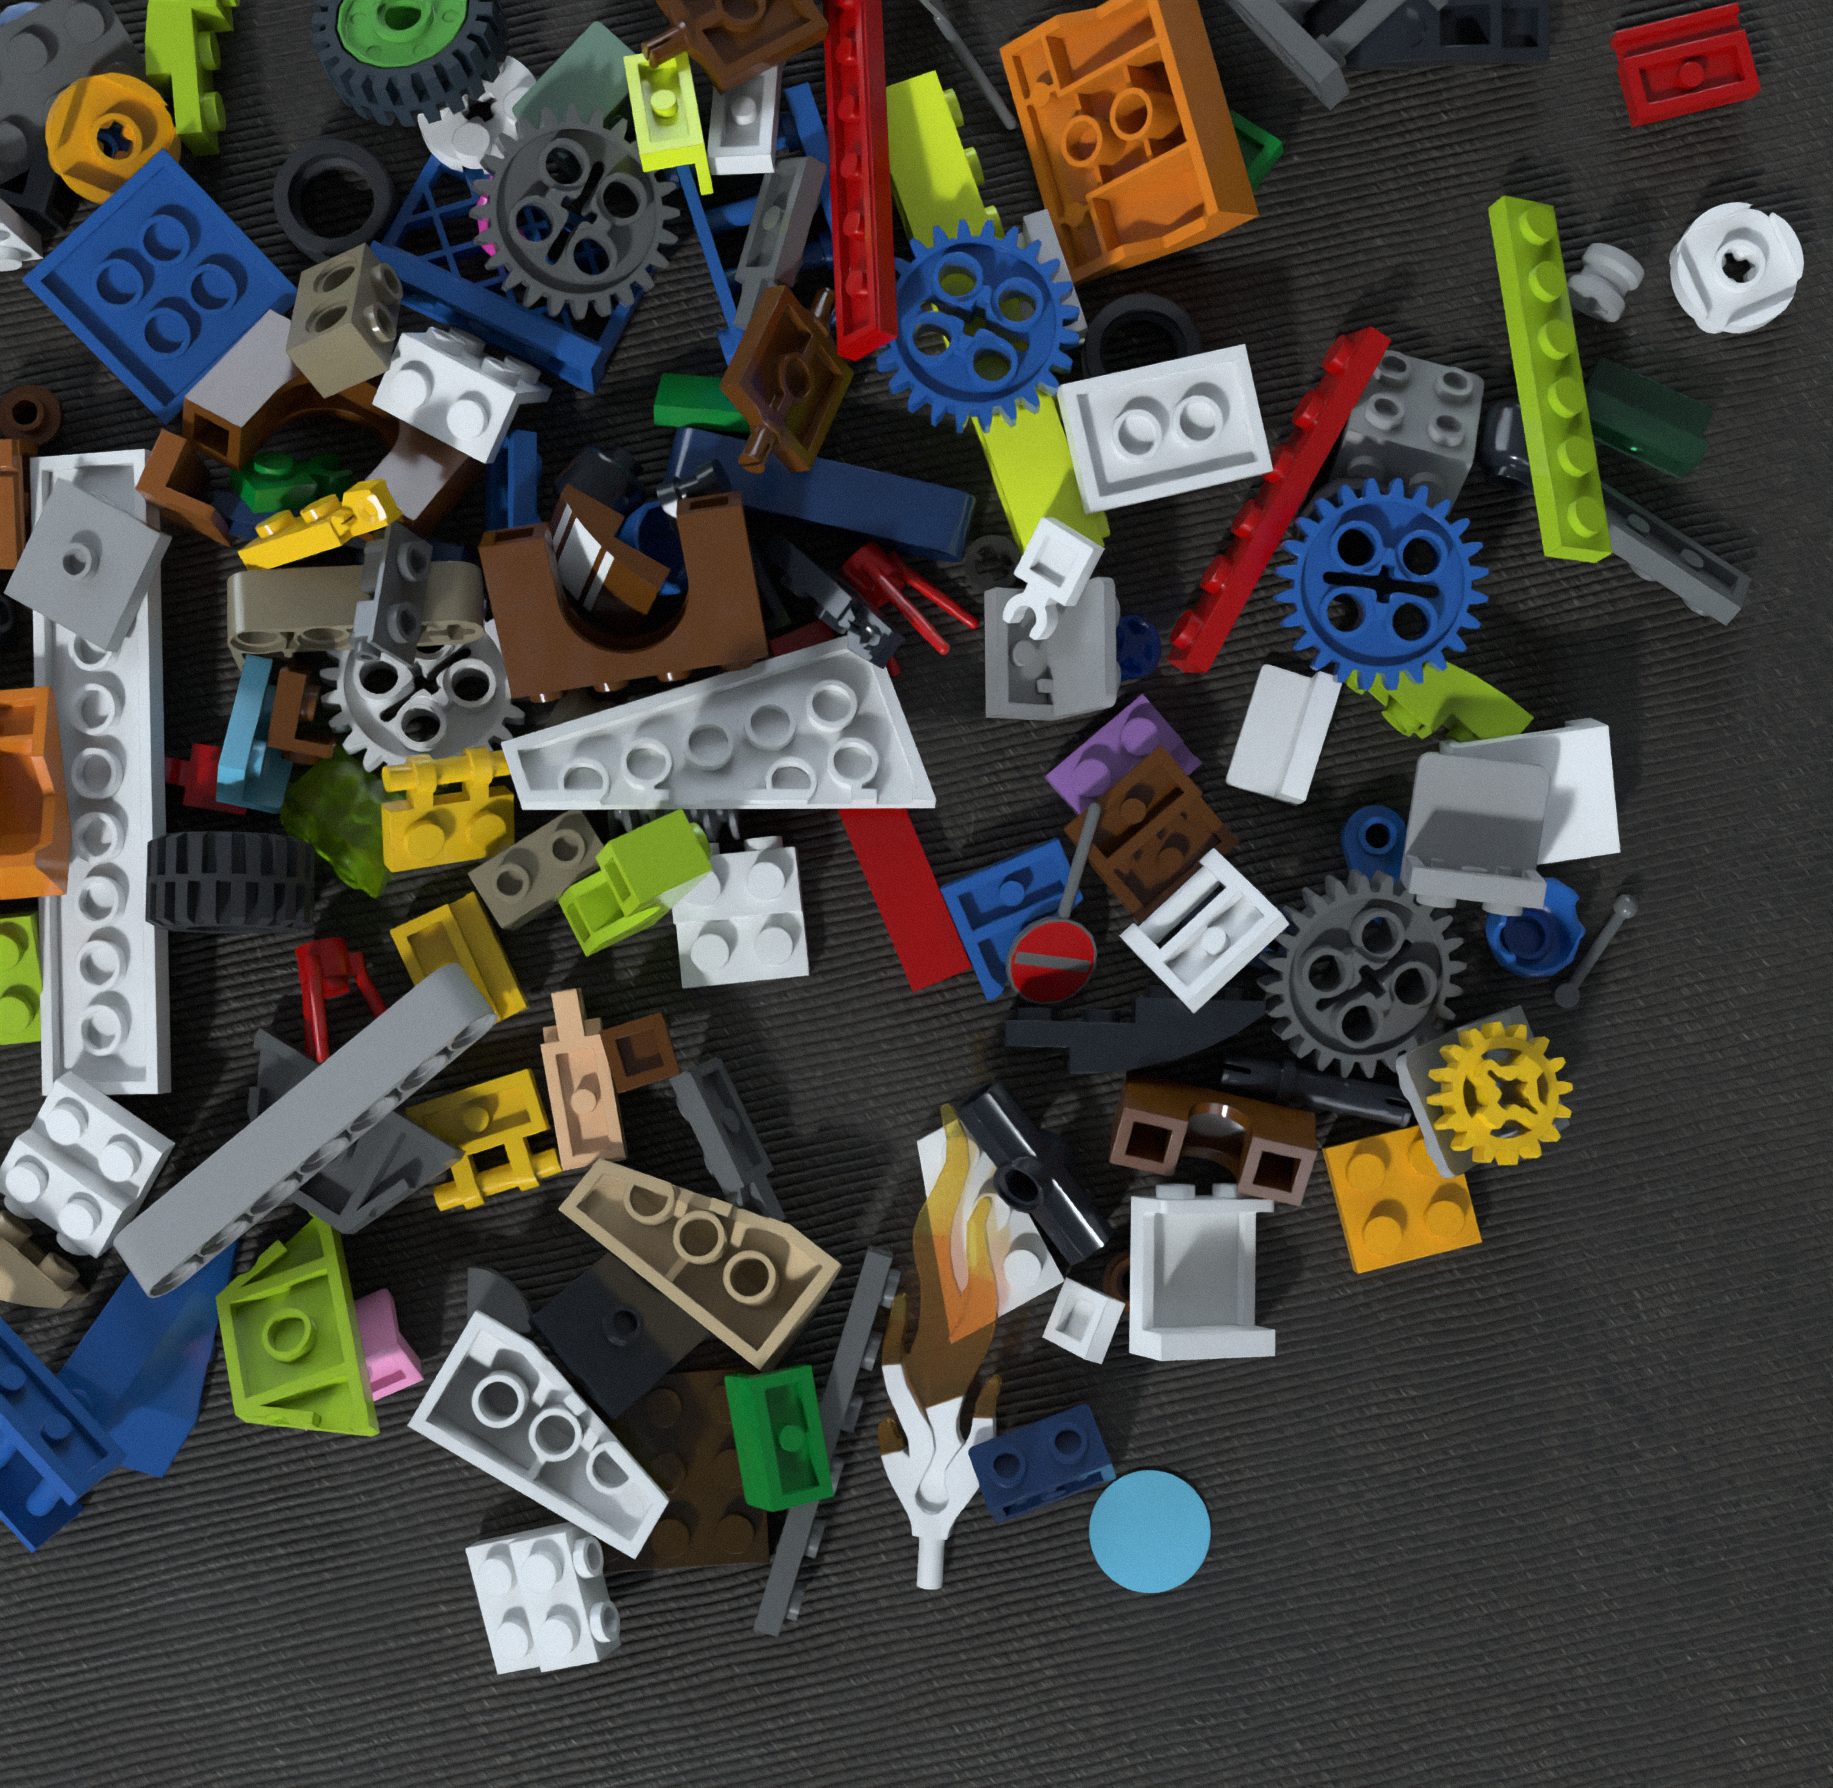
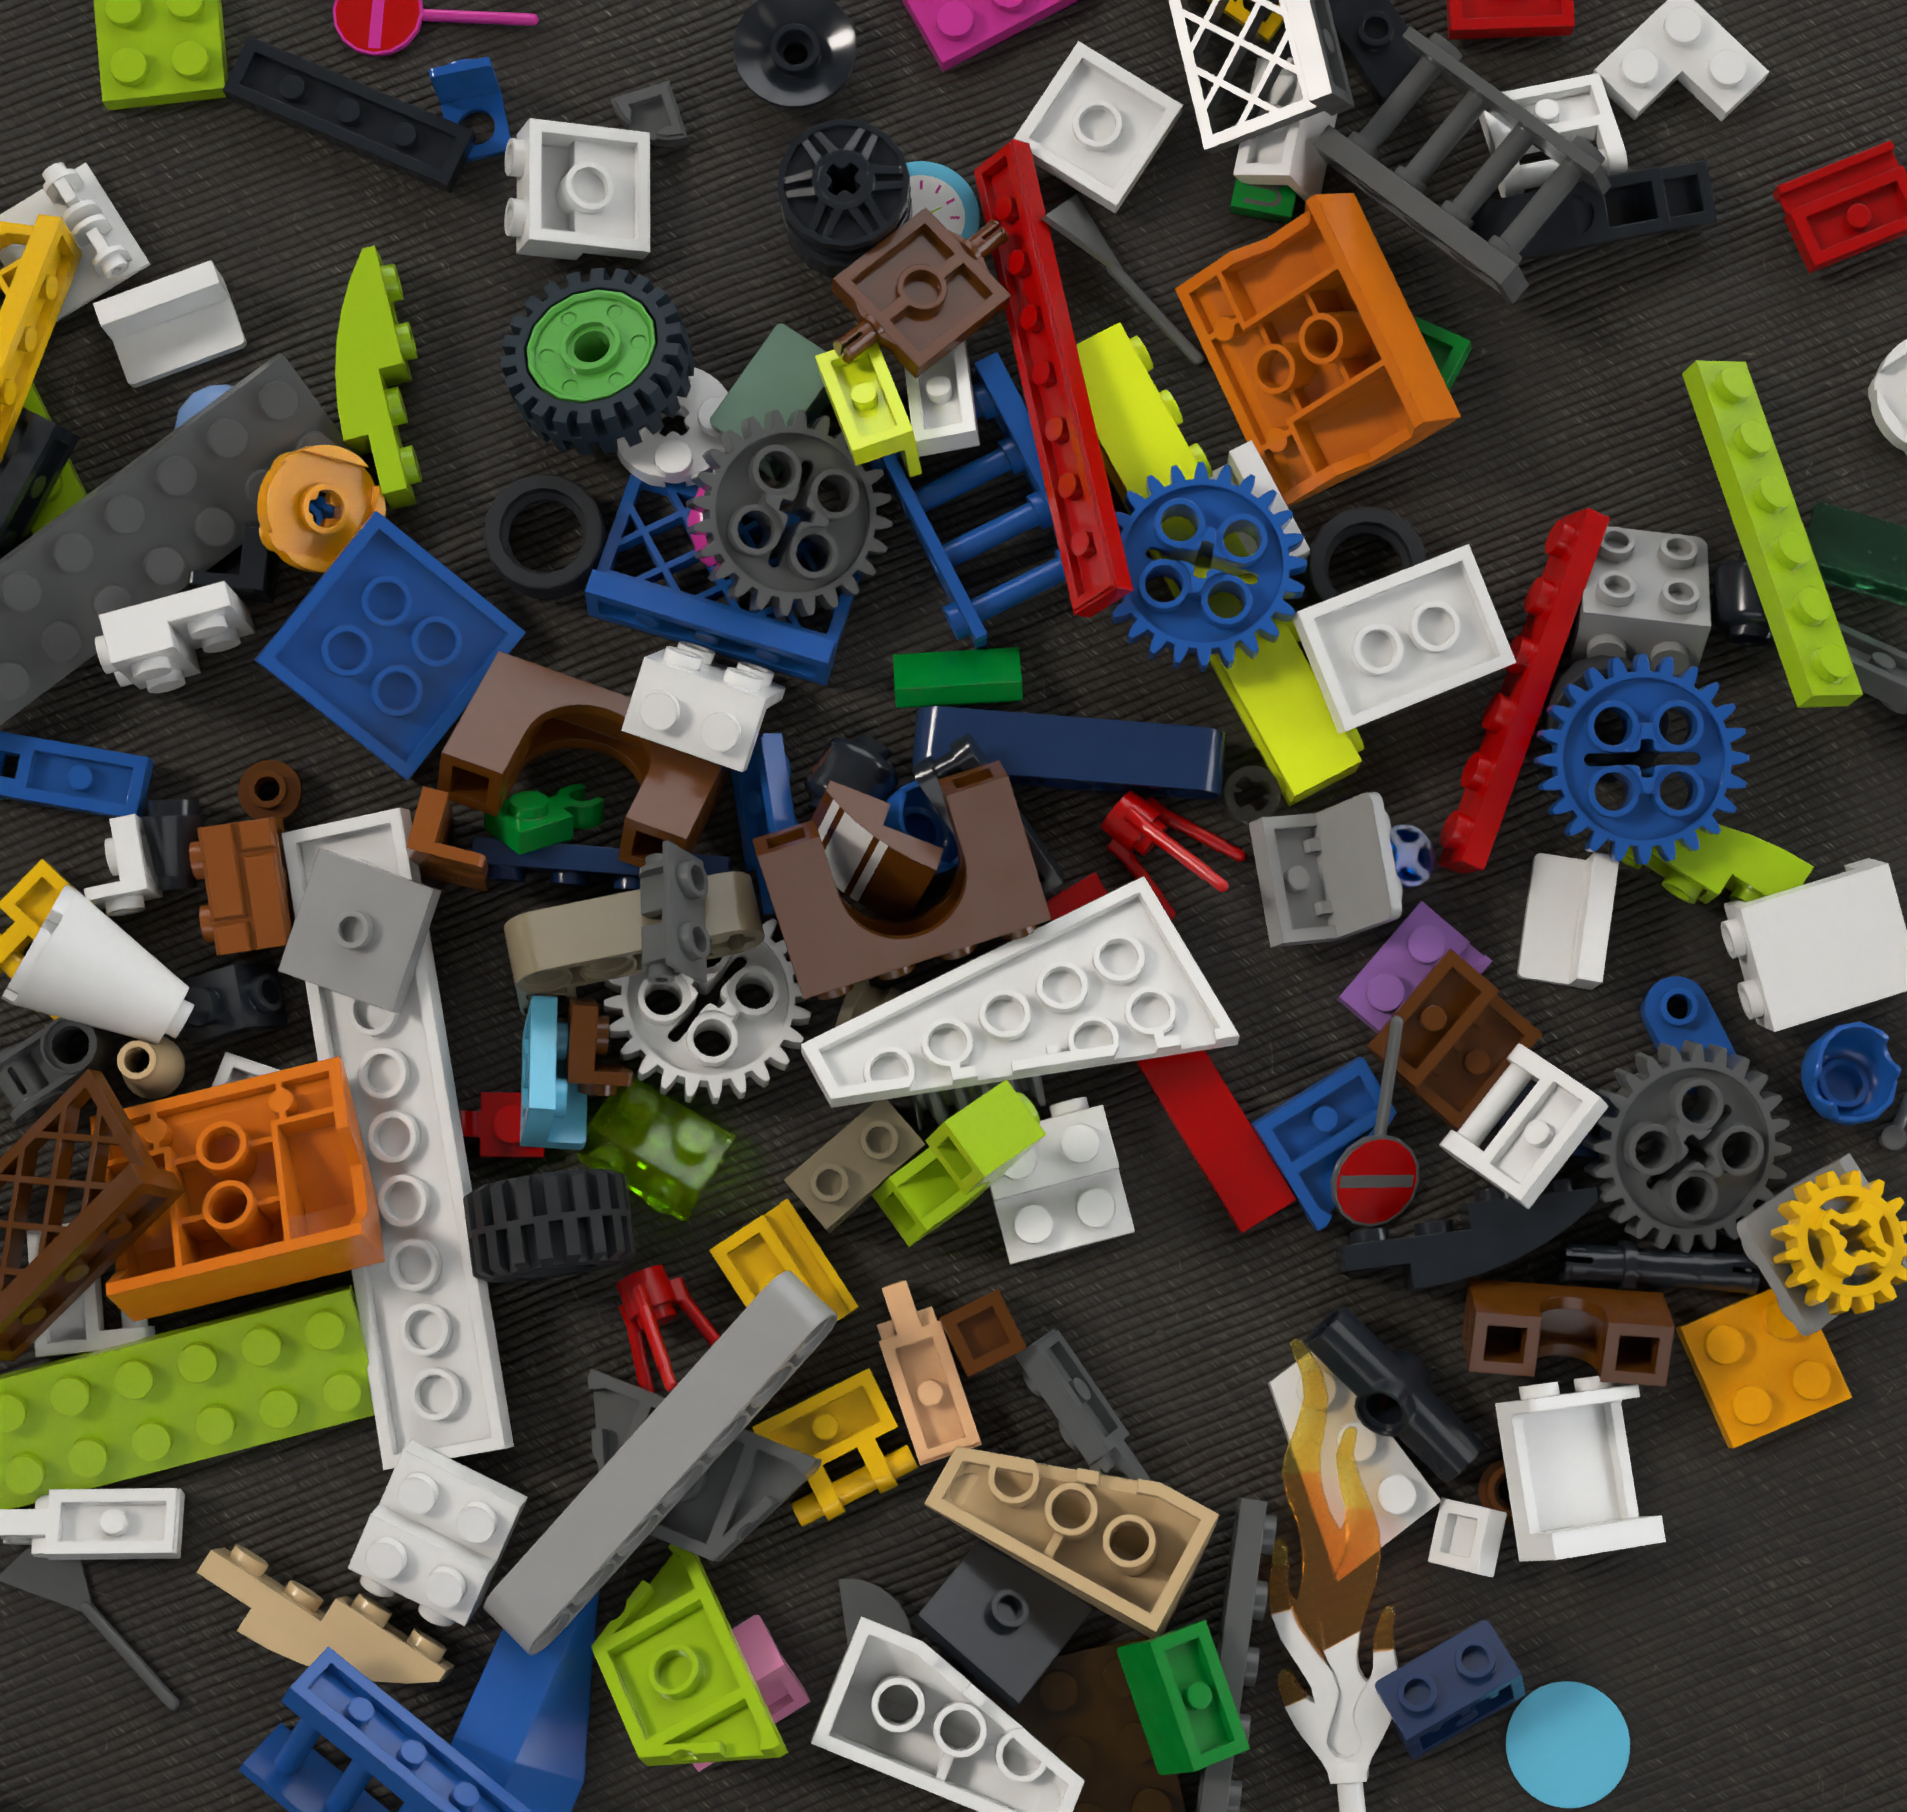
camera: 10 degrees left, 5 degrees down
(321, 525) = (594, 858): yellow hinge -> none
(345, 320) = (583, 652): dark tan brick -> none
(446, 826) = (756, 1136): yellow plate -> none
(778, 231) = (992, 514): dark grey hinge -> none
(787, 379) = (1027, 645): reddish brown plate -> none
(837, 600) = (1110, 856): black hinge -> none
(1056, 571) = (1321, 792): white plate -> none
(1476, 833) = (1777, 988): light grey bracket -> none
(1604, 282) = (1808, 429): light grey wheel -> none

